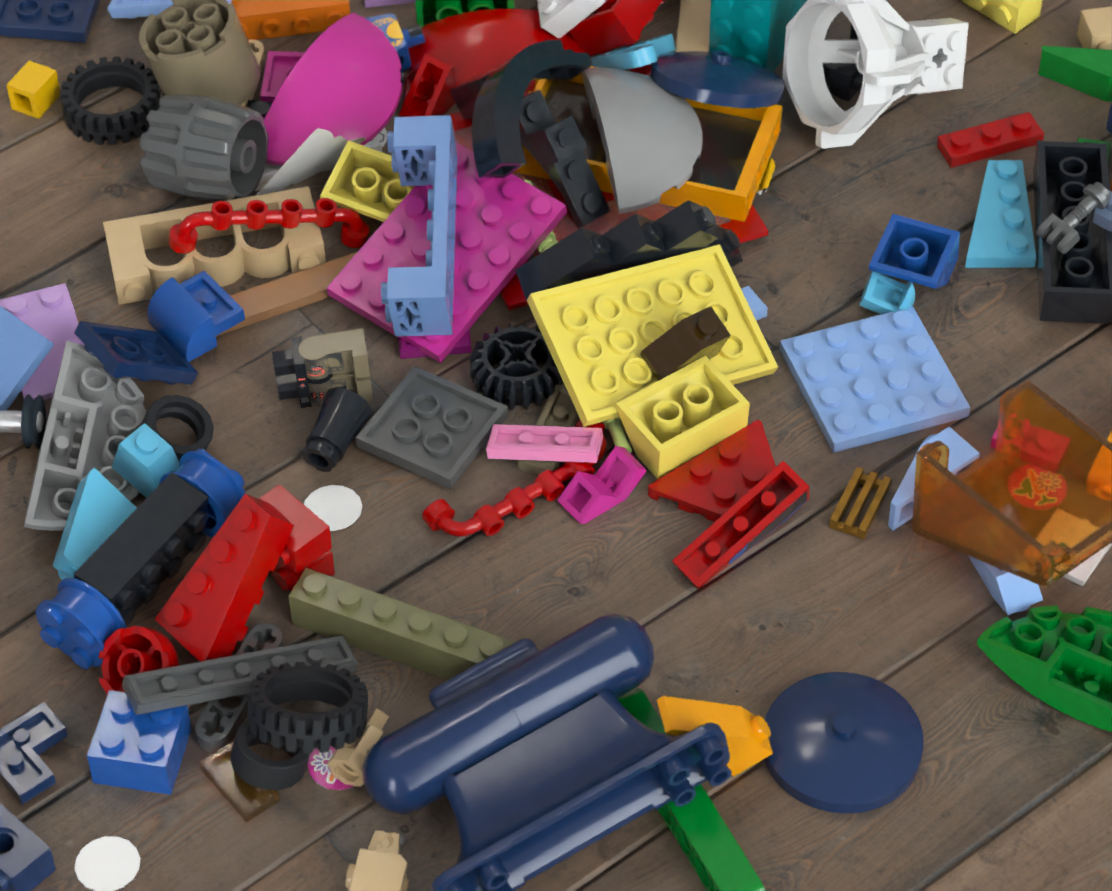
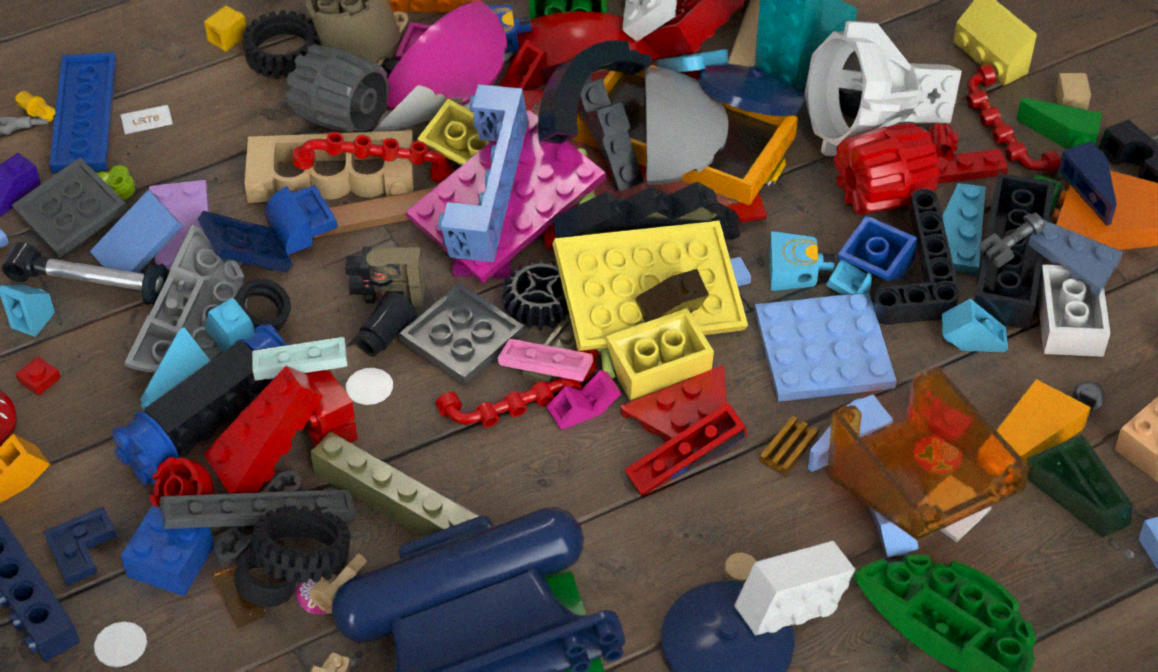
camera: 10 degrees right, 0 degrees up
(259, 480) = (302, 357): none -> light aqua plate
(744, 732) = (640, 619): light orange slope -> none
(816, 281) = (796, 261): none -> medium azure torso
(838, 655) = (739, 567): none -> tan tile
(904, 153) = (886, 167): none -> red wheel
(912, 666) = (794, 587): none -> white brick
(957, 111) = (944, 139): none -> red gear
(992, 25) = (1003, 132): none -> red bar
(998, 291) = (935, 265): none -> black beam
(1047, 332) = (973, 329): none -> medium azure slope

